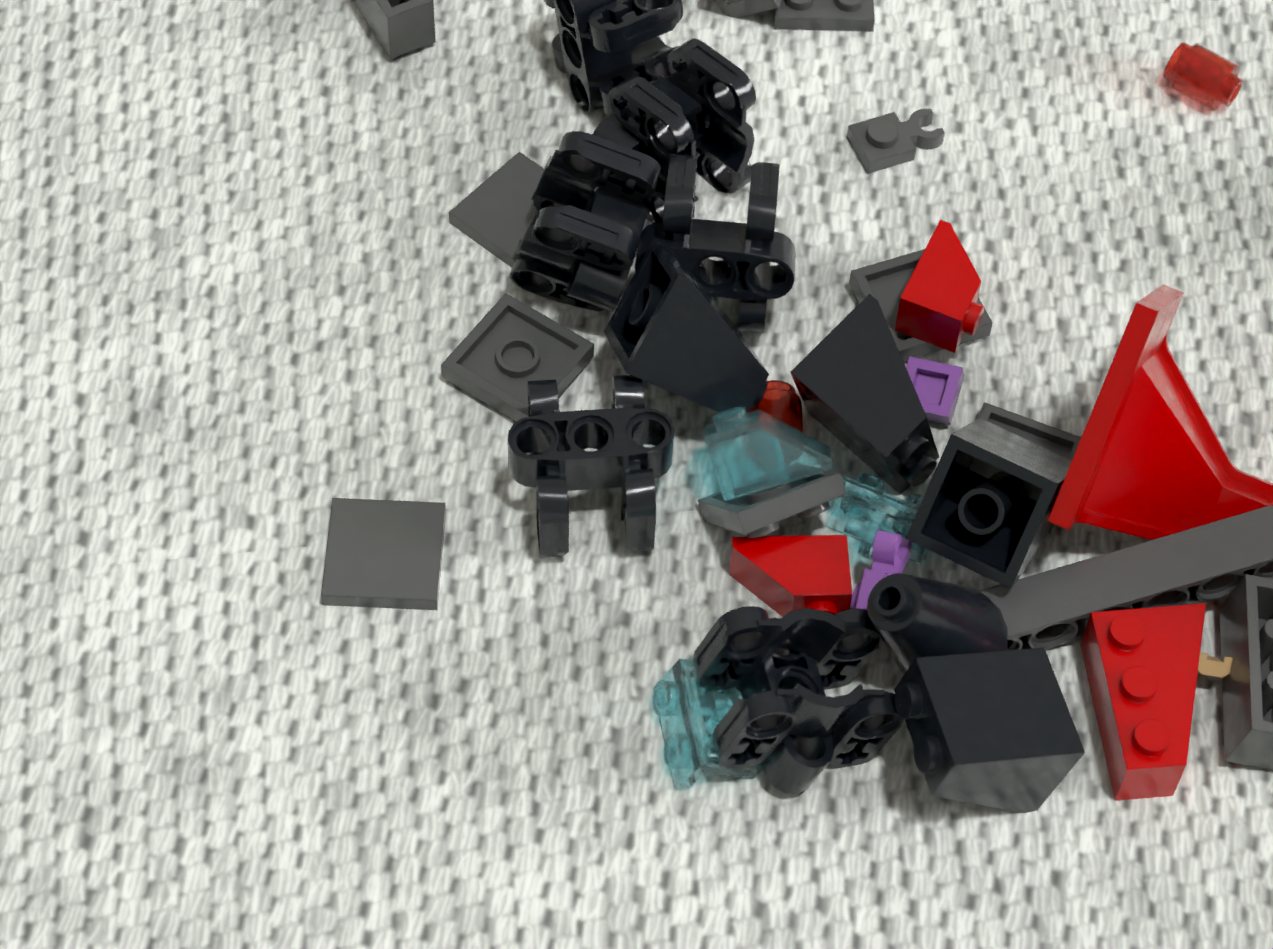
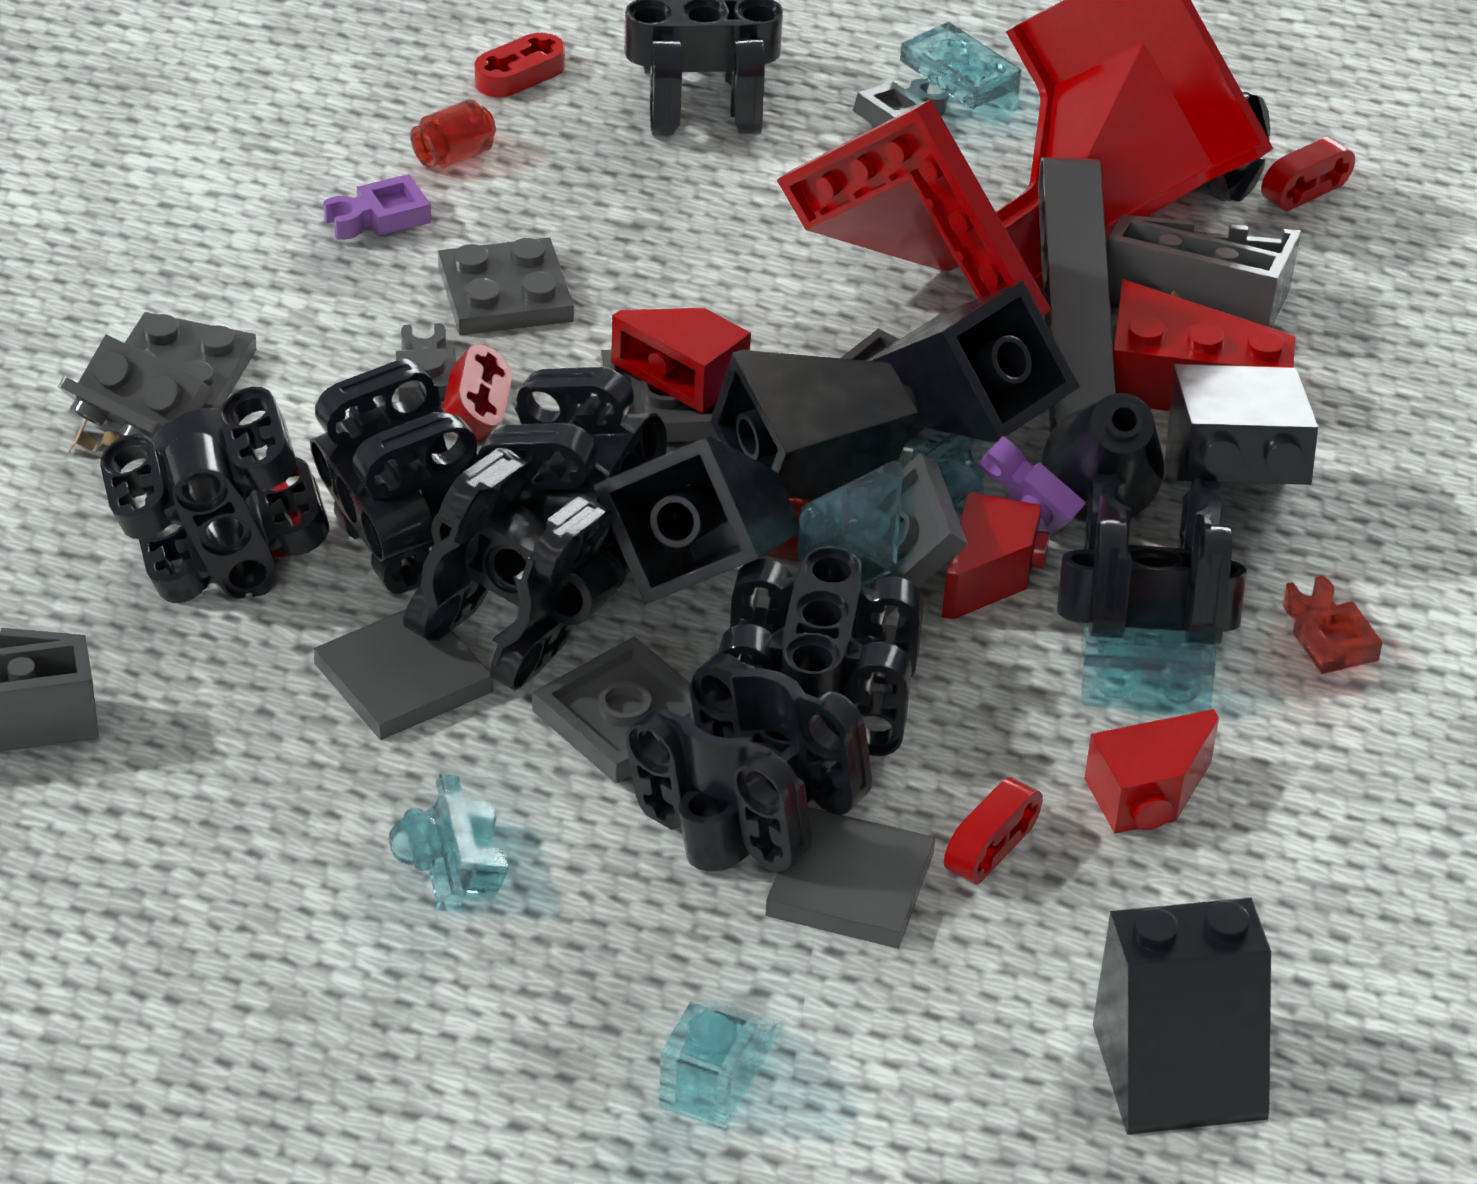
camera: 75 degrees left, 15 degrees down
(158, 496) = (713, 1060): none -> clear light blue slope
(237, 799) = (1186, 1015): none -> black slope
(322, 277) = (446, 843): none -> clear light blue hips
(438, 457) = (748, 765): none -> black piece
(454, 638) = (993, 830): none -> red beam
(560, 746) = (1150, 768): none -> red slope
(806, 872) = (1330, 633): none -> clear red plate
(860, 163) = (479, 389): none -> red beam
(1024, 165) = (505, 286): none -> dark grey plate
(1080, 59) = (384, 205): none -> medium lavender plate

